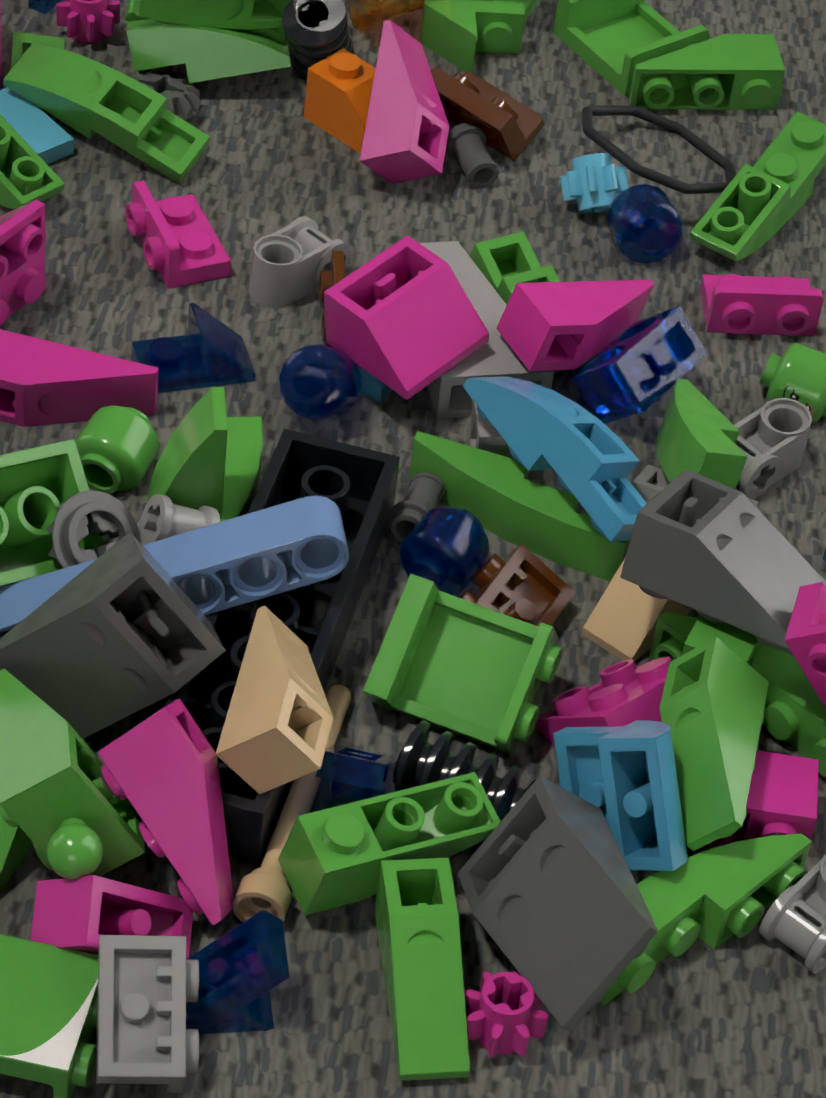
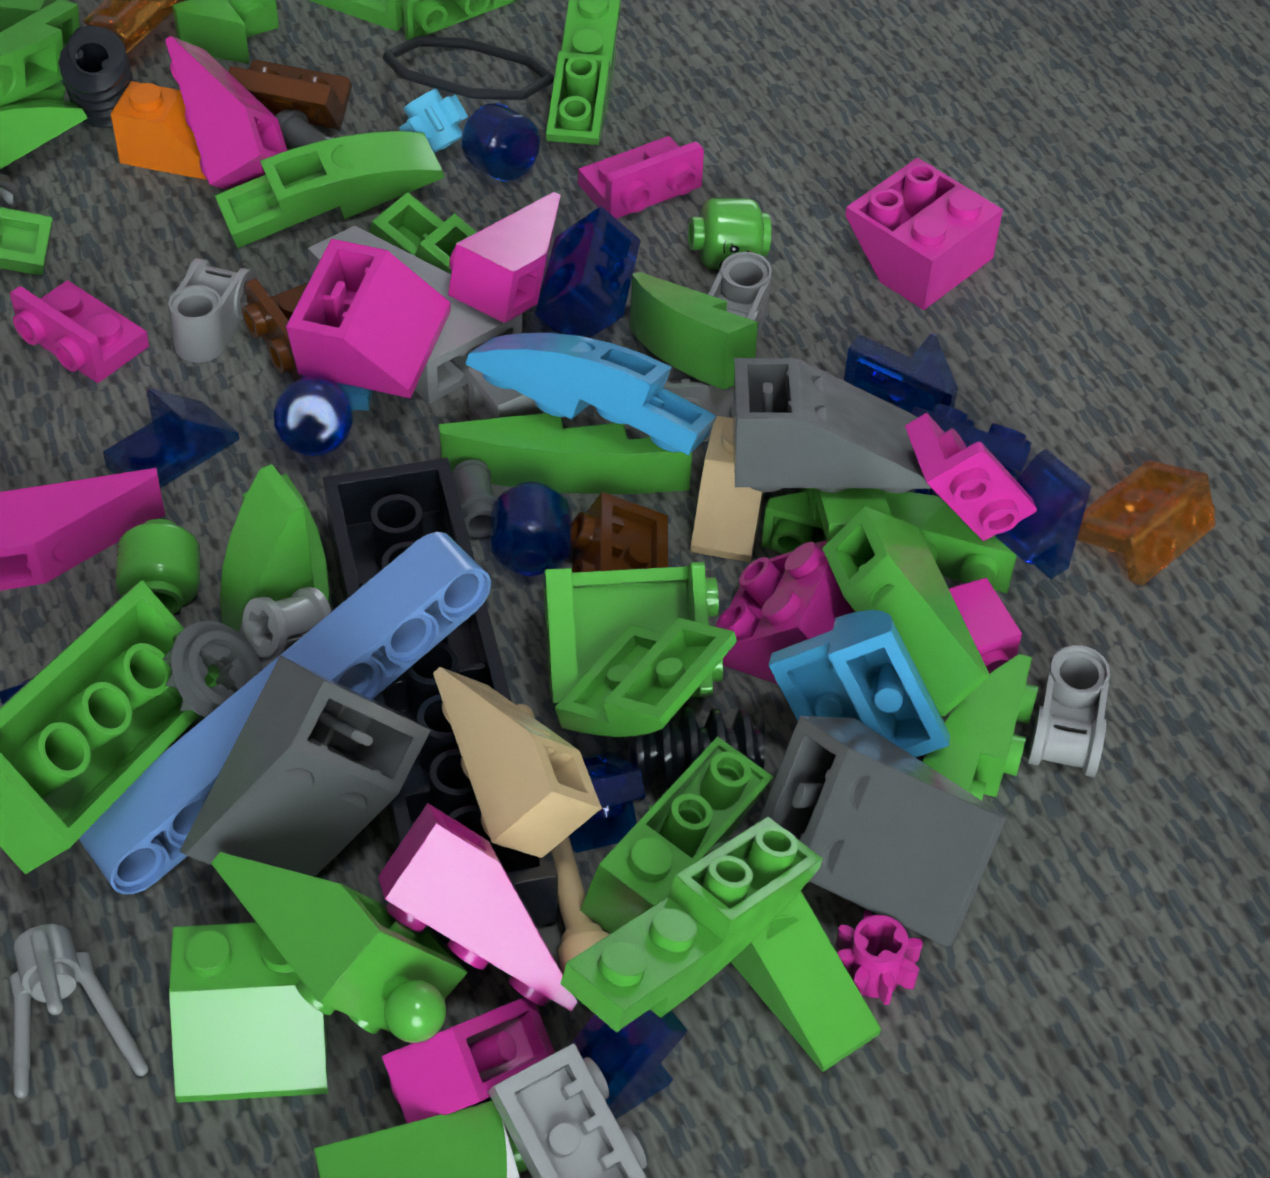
camera: 25 degrees left, 5 degrees up
(352, 899) = (696, 930): none -> bright green slope
(441, 697) = (643, 679): none -> bright green slope
(479, 193) = (328, 174): none -> bright green slope

